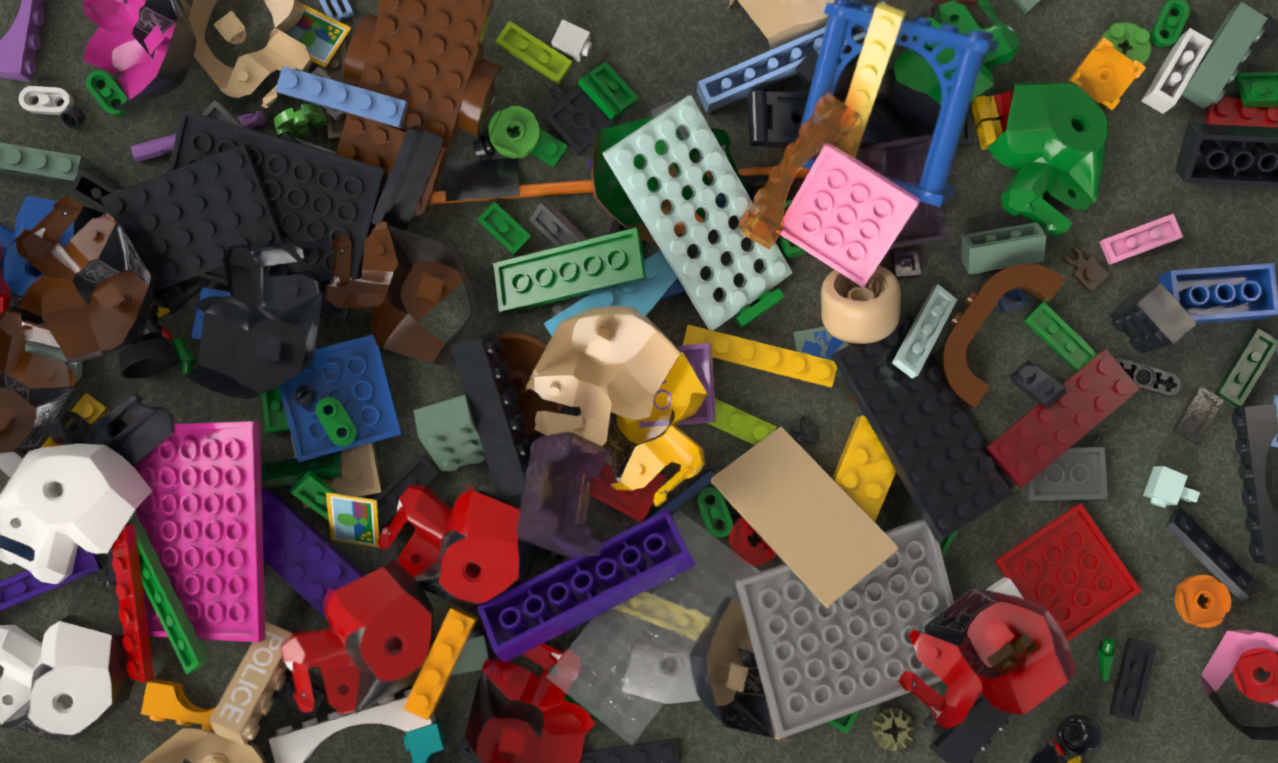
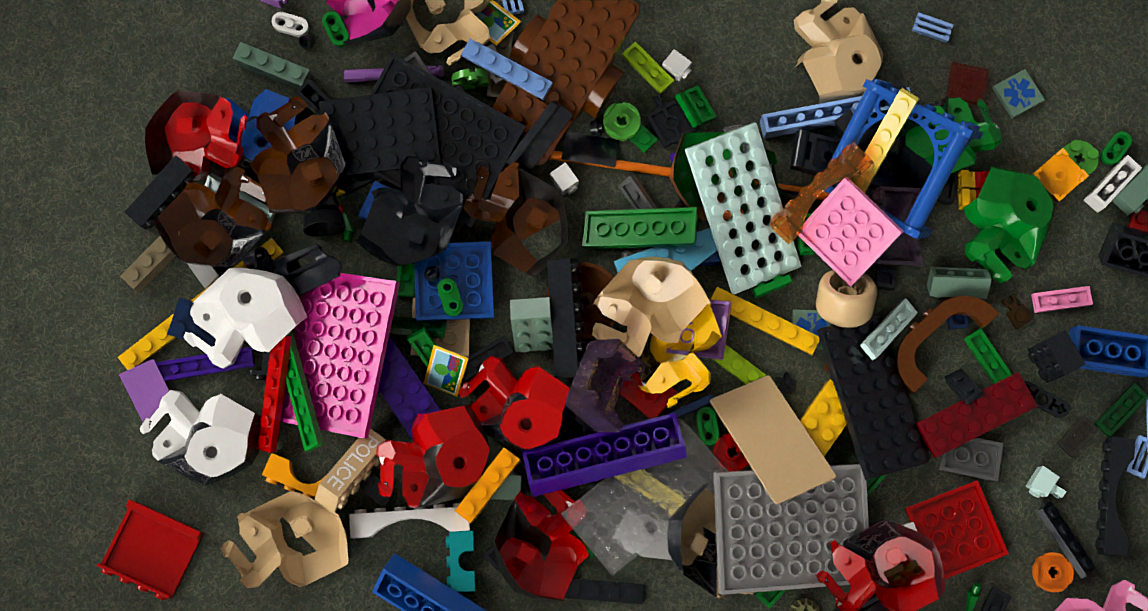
camera: 10 degrees right, 5 degrees down
(456, 227) = (564, 179): none -> white brick
(504, 228) = (598, 188): green plate -> none

